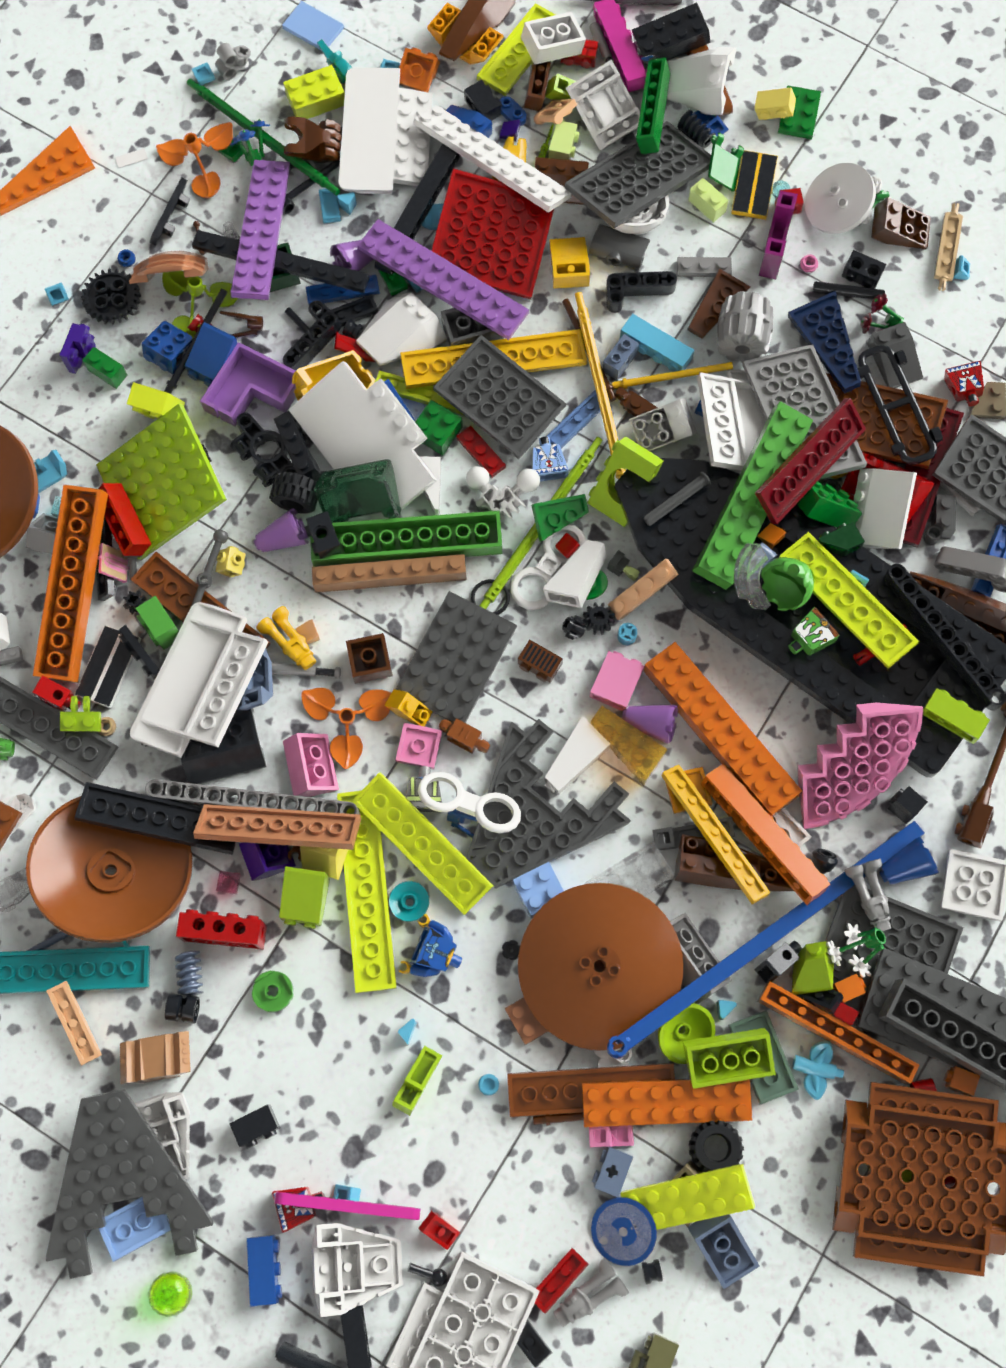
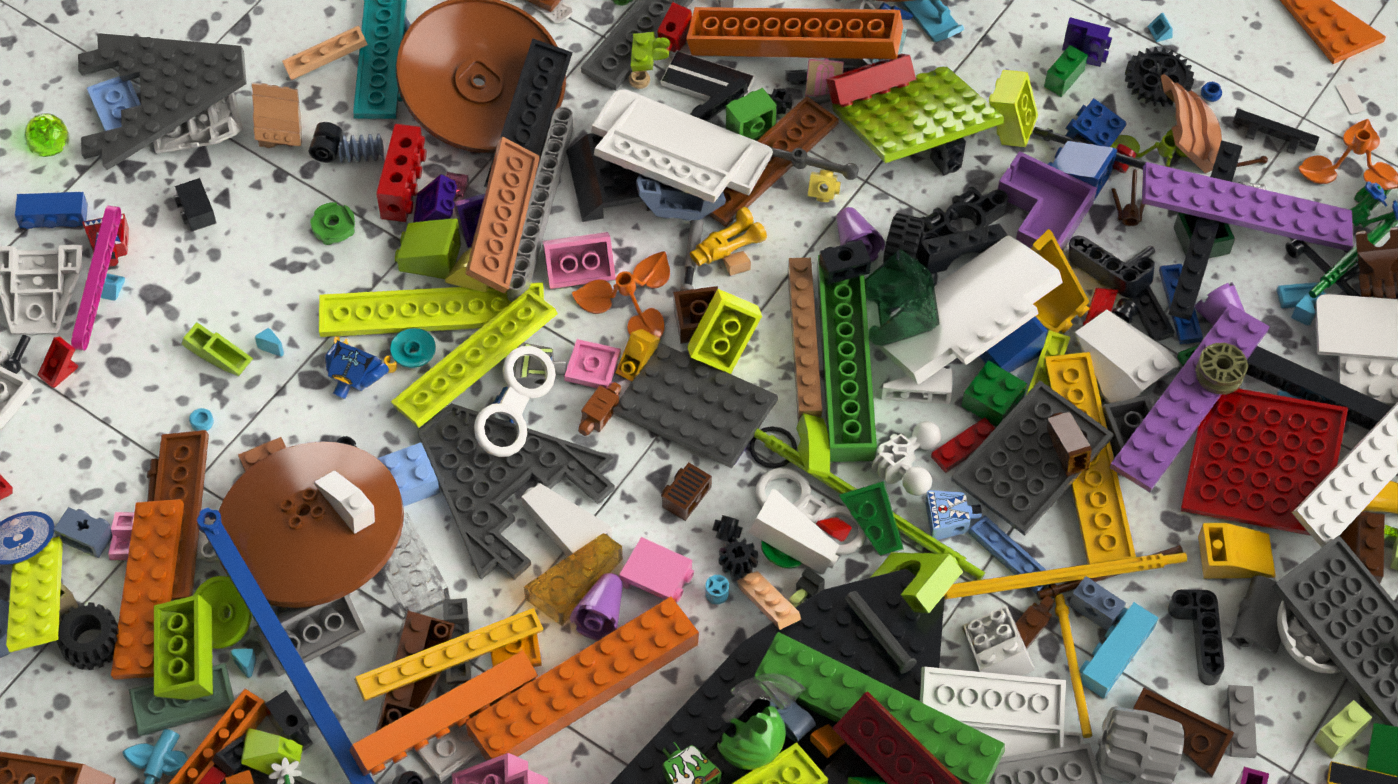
camera: 90 degrees right, 15 degrees down
(255, 896) = (435, 200): none -> dark purple plate
(396, 630) = (724, 331): none -> neon yellow brick
(427, 260) = (1221, 356): none -> olive wheel
(495, 561) = (814, 445): none -> lime slope
(496, 362) = (1069, 443): none -> reddish brown slope
(592, 927) = (347, 501): none -> white slope

